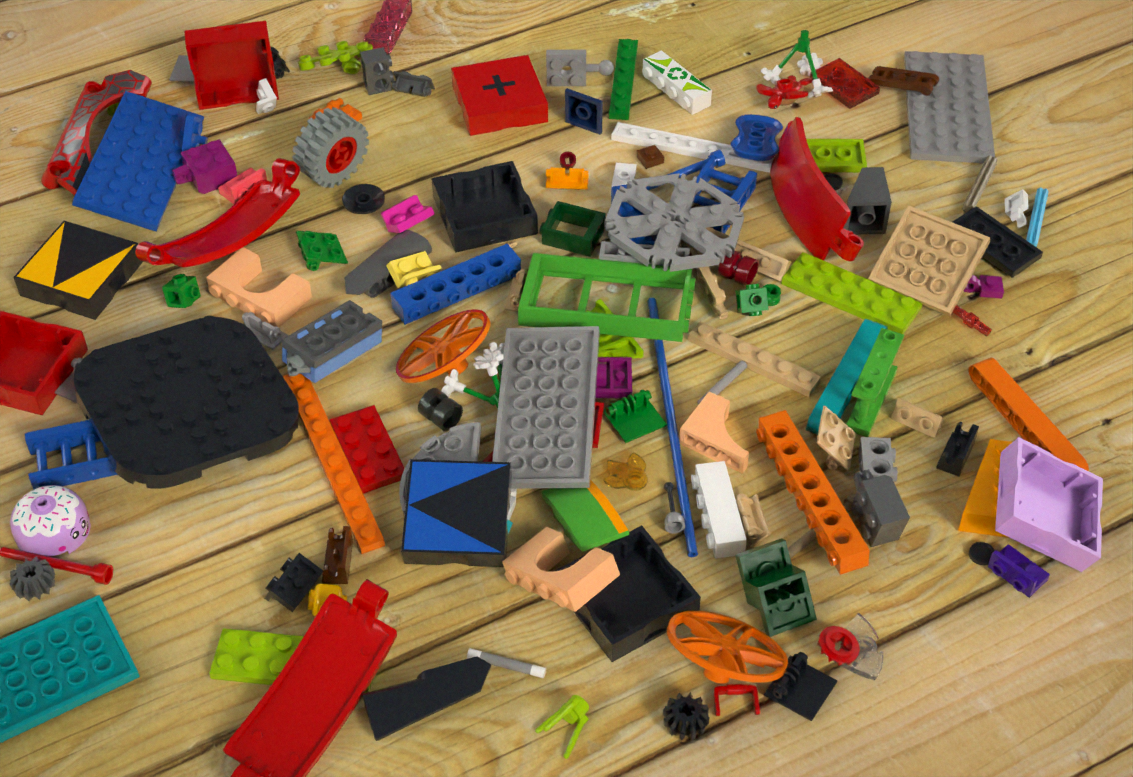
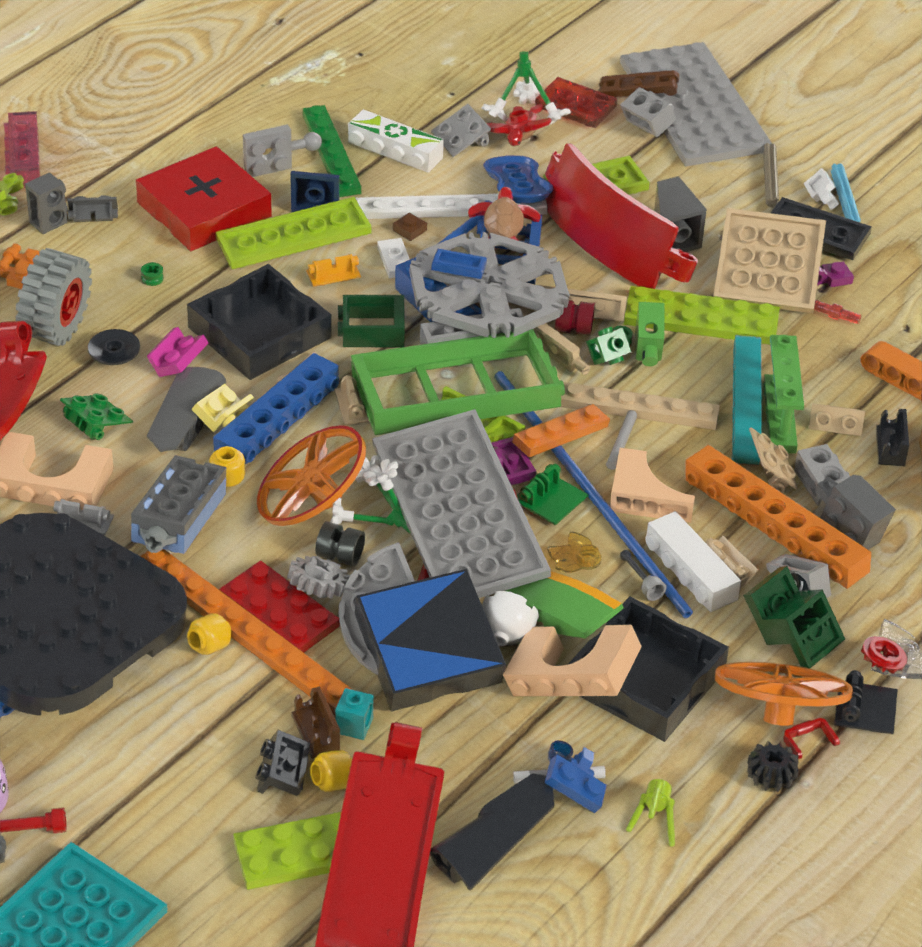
camera: 25 degrees left, 5 degrees down
(299, 455) = (209, 634): none -> yellow head
(369, 557) = (354, 713): none -> teal brick
(392, 319) = (234, 463): none -> yellow head
(406, 431) = (318, 576): none -> light grey gear
(428, 147) = (152, 274): none -> green bush
(512, 674) = (576, 779): none -> blue hinge
(520, 646) = (562, 748): none -> clear blue hinge
(530, 514) = (509, 617): none -> white cylinder
(552, 139) = (293, 232): none -> lime plate
(572, 160) = (326, 249): dark red hinge -> none
(654, 198) = (459, 263): none -> blue tile
(673, 362) = (560, 430): none -> orange plate
(723, 166) = (504, 215): none -> medium nougat animal
(736, 85) = (462, 130): none -> light grey hinge
(789, 305) = (649, 343): none -> bright green torso
(804, 551) = (805, 572): none -> light grey slope
(899, 104) = (648, 111): none -> light grey brick

